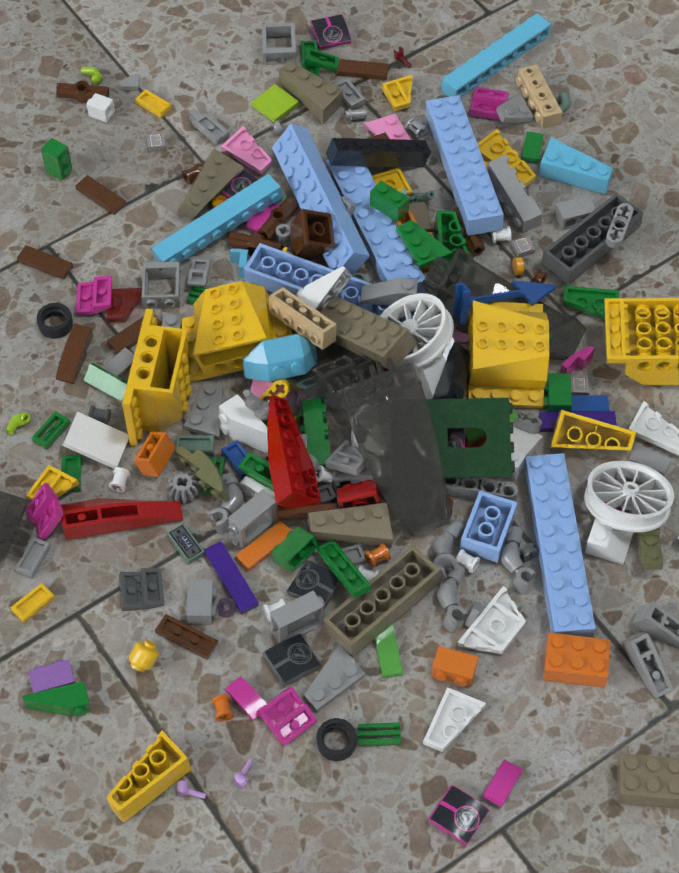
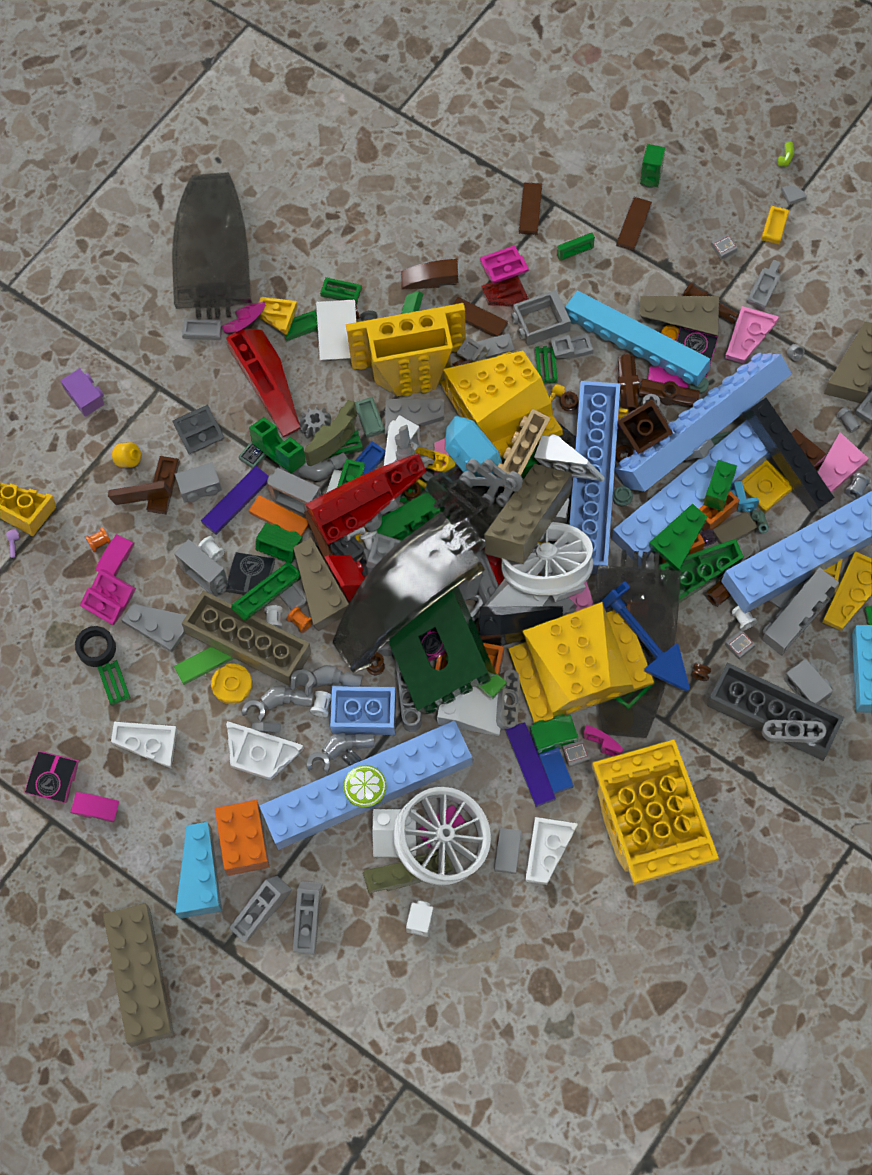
camera: 75 degrees right, 10 degrees up
(17, 421) = (338, 257): lime arm -> none
(32, 603) = (156, 347): yellow tile -> none
(56, 331) = (463, 231): black tyre -> none
(63, 700) = (65, 409): green slope -> none
(81, 91) = (753, 148): reddish brown piece -> none
(100, 107) = (743, 179): white brick -> none
(103, 239) = (575, 246): none -> green tile
(119, 480) = (304, 367): white bush -> none
(154, 454) = (339, 384): orange brick -> none
(189, 525) = (286, 453): none -> green arch
(191, 653) = (139, 493): none -> reddish brown tile
(221, 610) = (206, 502): clear purple bush -> none
(239, 256) = (605, 377): medium azure bracket -> none
(240, 778) = (35, 579): lavender hand -> none
(275, 103) = (828, 337): lime tile -> none
(292, 659) = (165, 581): black slope -> none
(335, 329) = (511, 481): none -> light grey plant
(388, 291) = (601, 527): light grey slope -> none
(418, 632) = (231, 684): none -> yellow tile
(454, 666) = (200, 726): orange brick -> none
(518, 266) = (707, 646): light orange tile -> none
(567, 537) = (364, 786): none -> dish
(586, 433) = (510, 778): yellow wedge -> none
(588, 299) = (693, 736): green wing -> none
(599, 705) = (198, 878): none -> medium azure wedge

